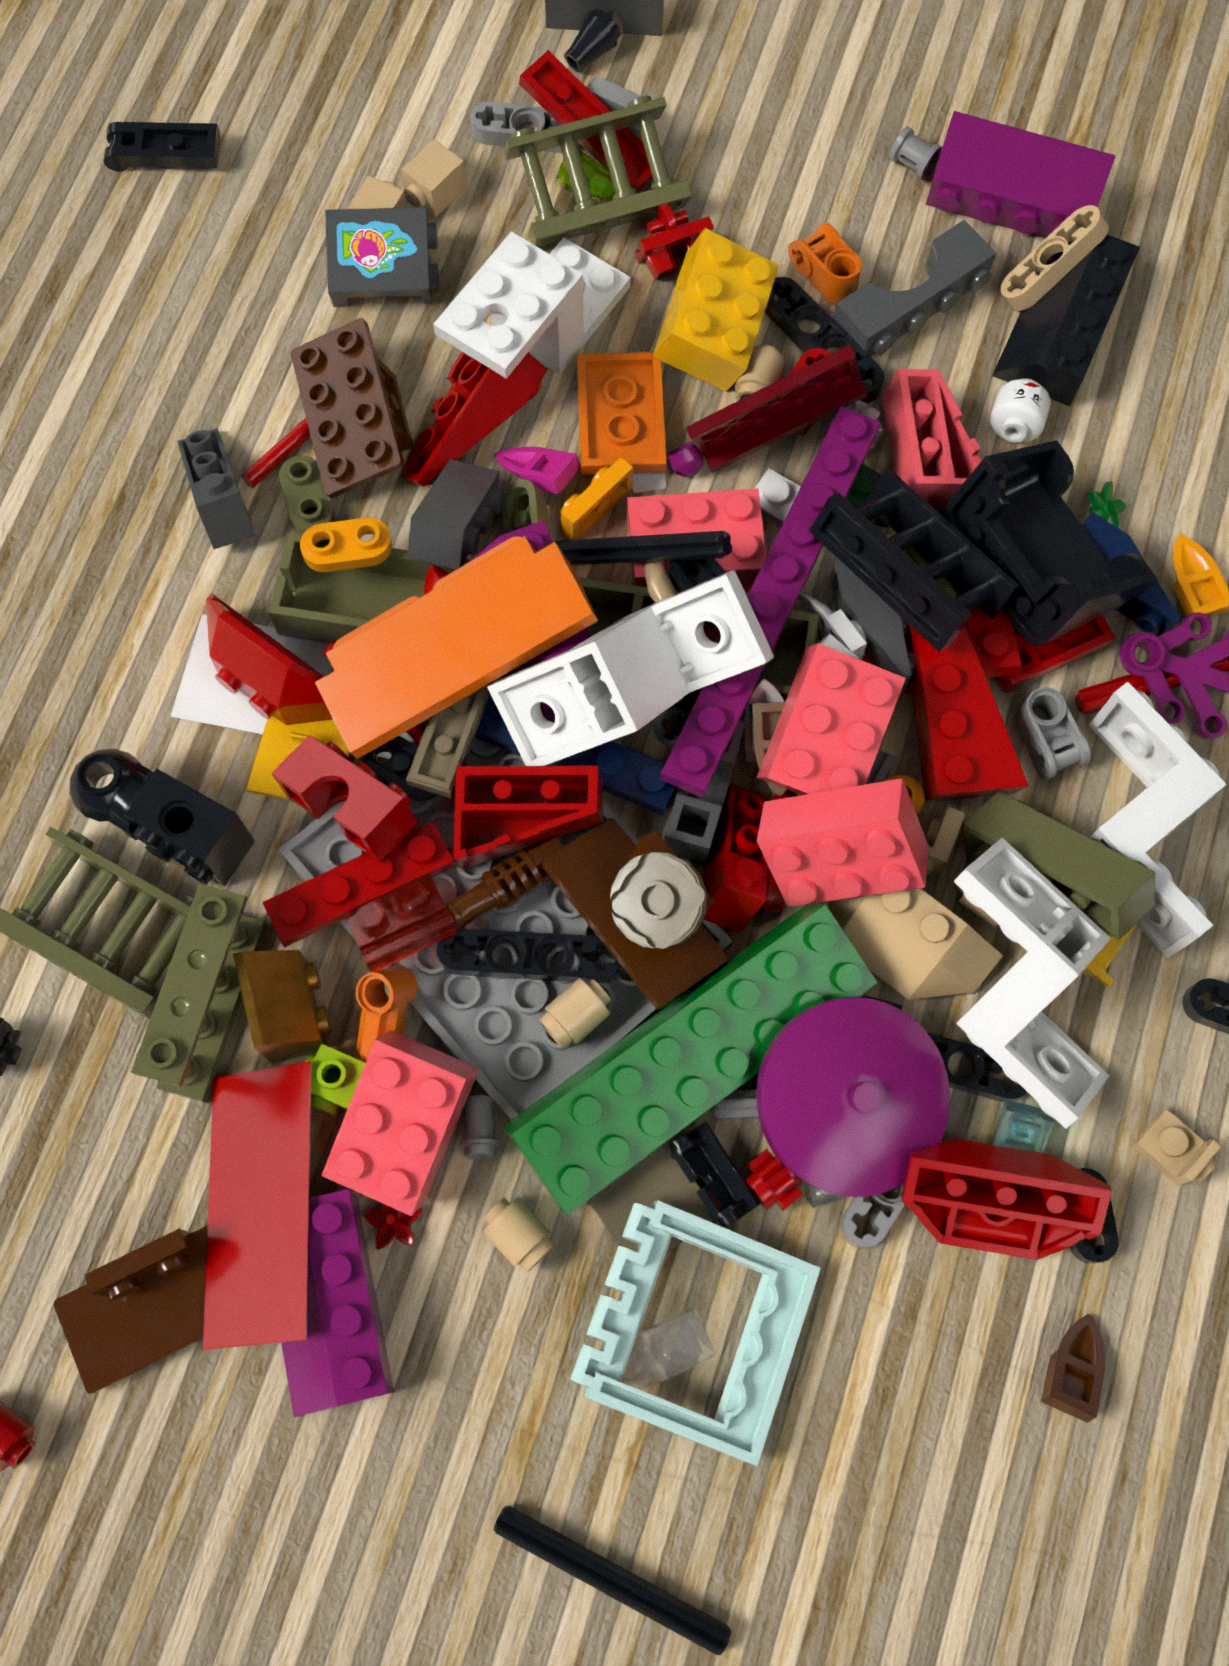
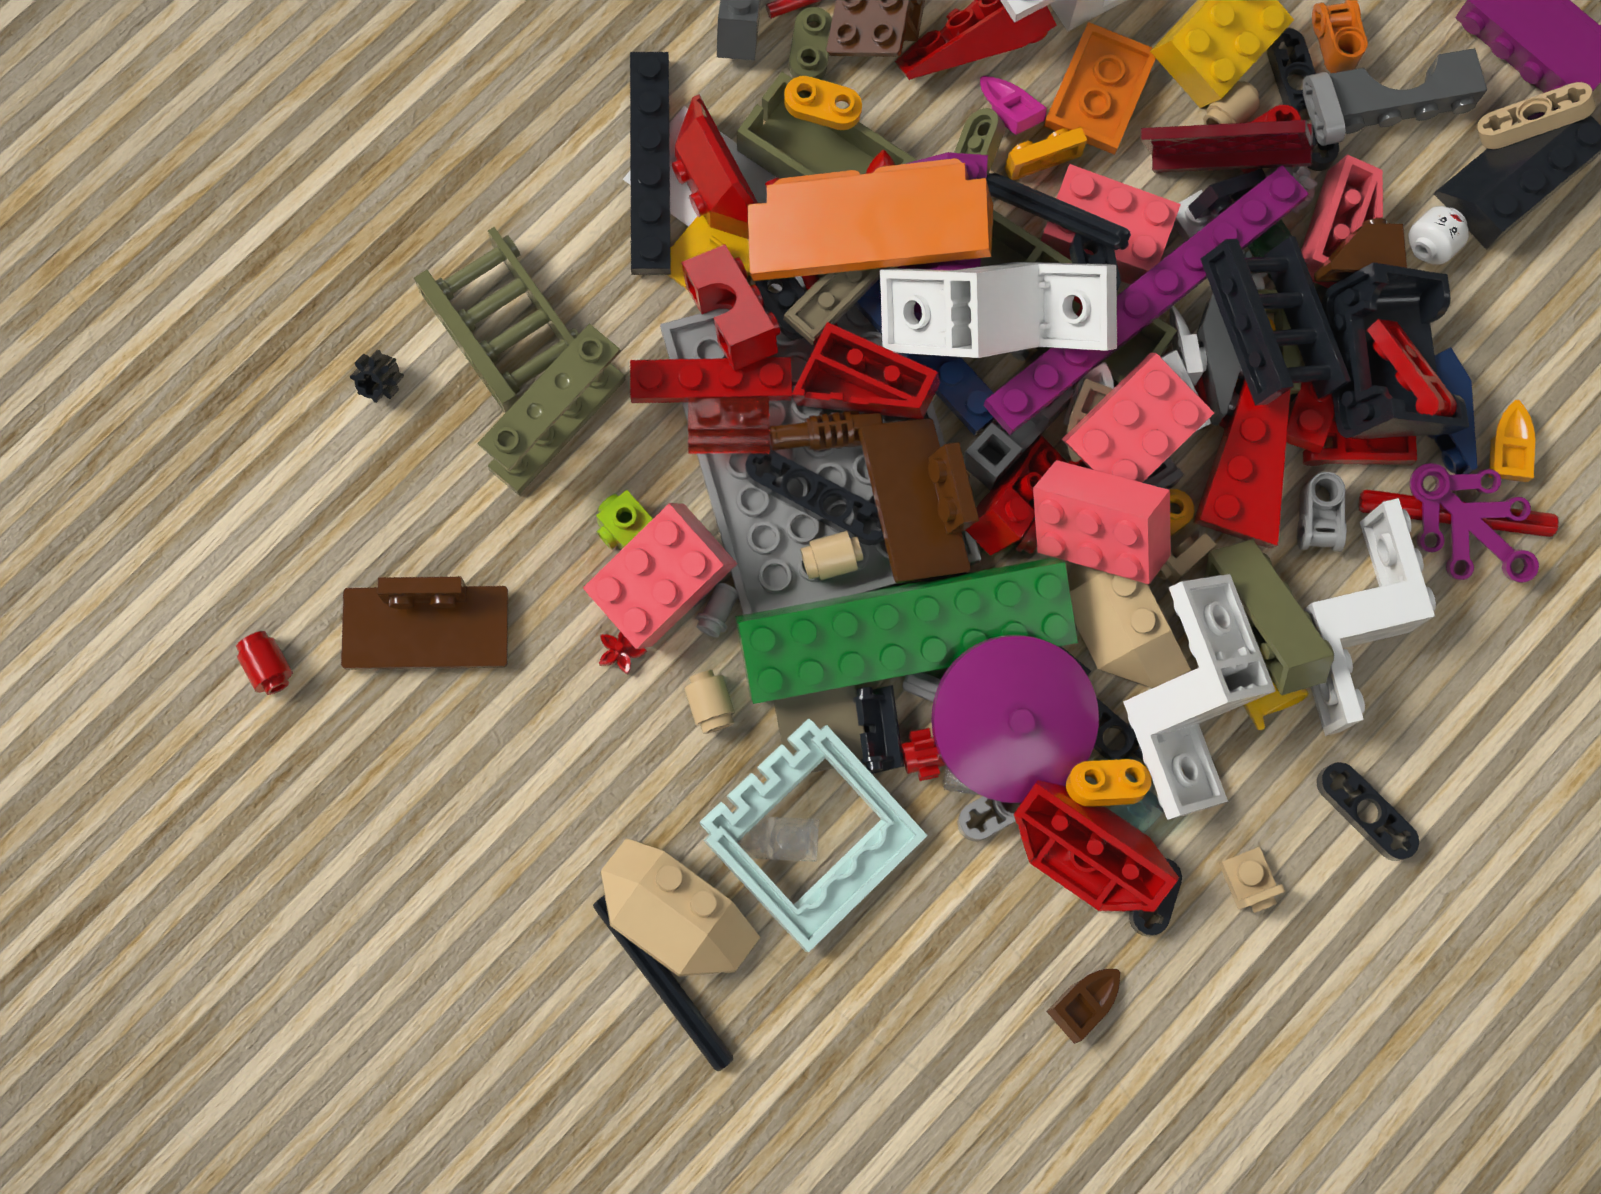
camera: 20 degrees right, 5 degrees up
(161, 814) = (583, 256): black brick -> none
(192, 688) = (650, 163): none -> black plate
(258, 1208) = (526, 588): sticker -> none
(282, 1003) = (610, 445): pearl gold slope -> none
(345, 1340) = (543, 683): magenta slope -> none
(380, 1011) = (682, 485): orange piece -> none
(455, 514) = (922, 115): dark grey brick -> none
(587, 1496) = (674, 912): none -> tan wedge
(648, 482) = (1096, 156): white sticker -> none
(658, 581) = (1058, 246): tan arm -> none
(658, 900) = (935, 498): tile -> none
(659, 728) = (1006, 362): dark grey bush -> none
(685, 460) = (1134, 152): magenta hinge -> none
(797, 460) = (1223, 194): none -> black plate
(843, 328) = (1324, 108): none -> light grey beam
(963, 450) = (1370, 243): none -> reddish brown slope
(989, 1117) = (1111, 785): none -> light orange plate
(1073, 548) = (1412, 369): none -> red plate
(1104, 505) = (1467, 349): green plant -> none

